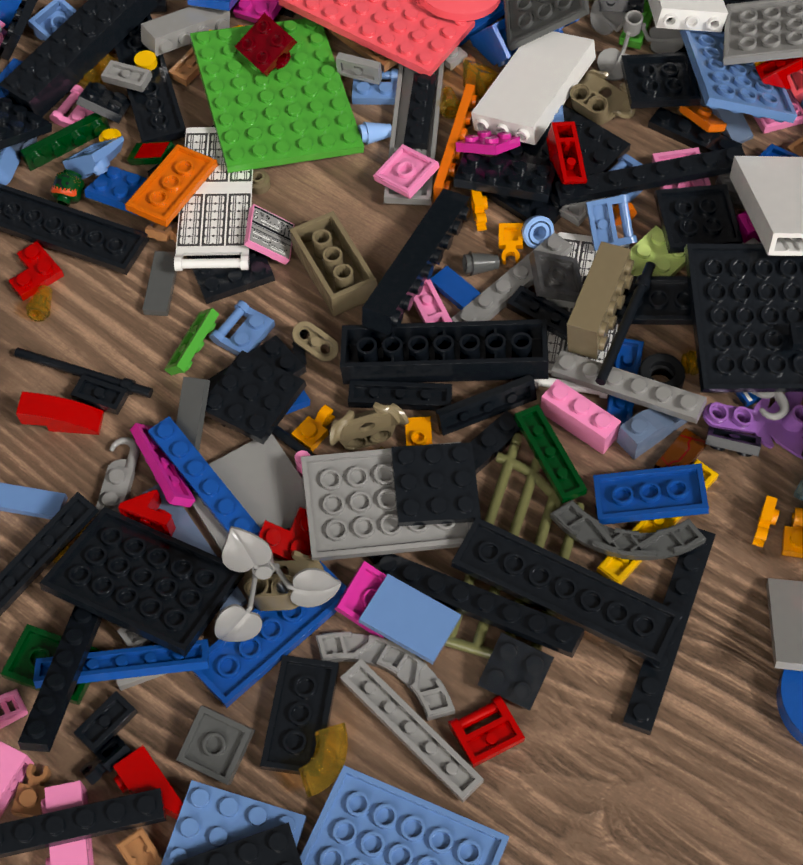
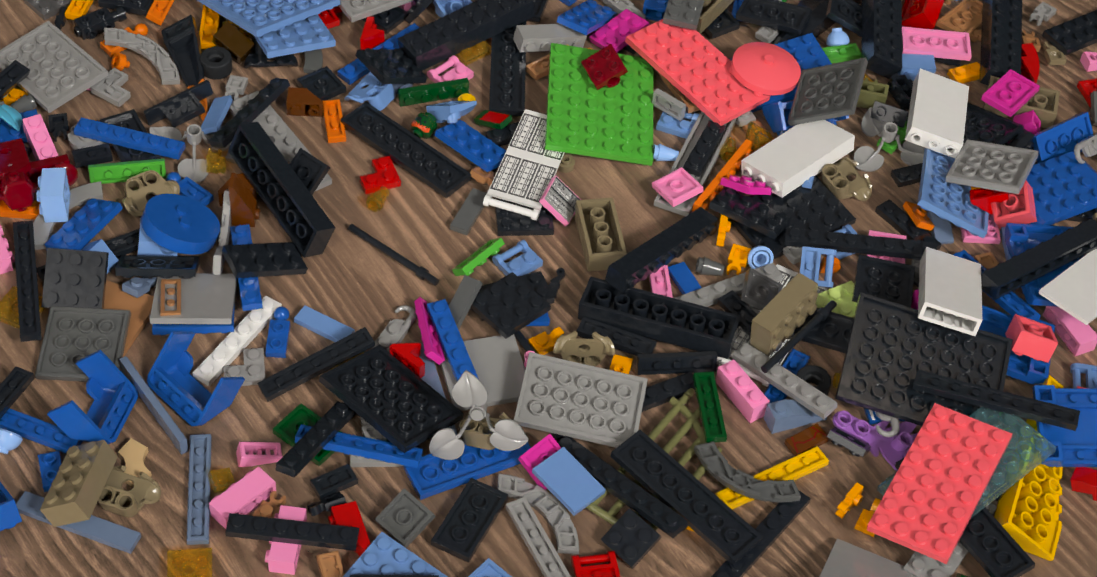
camera: 10 degrees right, 10 degrees down
(59, 414) = (367, 276): red slope -> none
(100, 394) = (400, 272): black plate -> none
(104, 102) = (470, 73): black plate -> none
(126, 76) = (493, 59): light grey plate -> none
(146, 59) = (511, 53): yellow tile -> none
(171, 185) = (500, 145): orange tile -> none
(285, 541) = (497, 404): red plate -> none
(315, 341) = (567, 283): dark tan plate -> none
(327, 759) = (478, 550): clear yellow tile -> none
(435, 484) = (618, 399): black plate -> none
(566, 152) = (801, 208): red slope -> none
(650, 494) = (772, 456): blue plate -> none
(660, 80) = (893, 179): black plate -> none

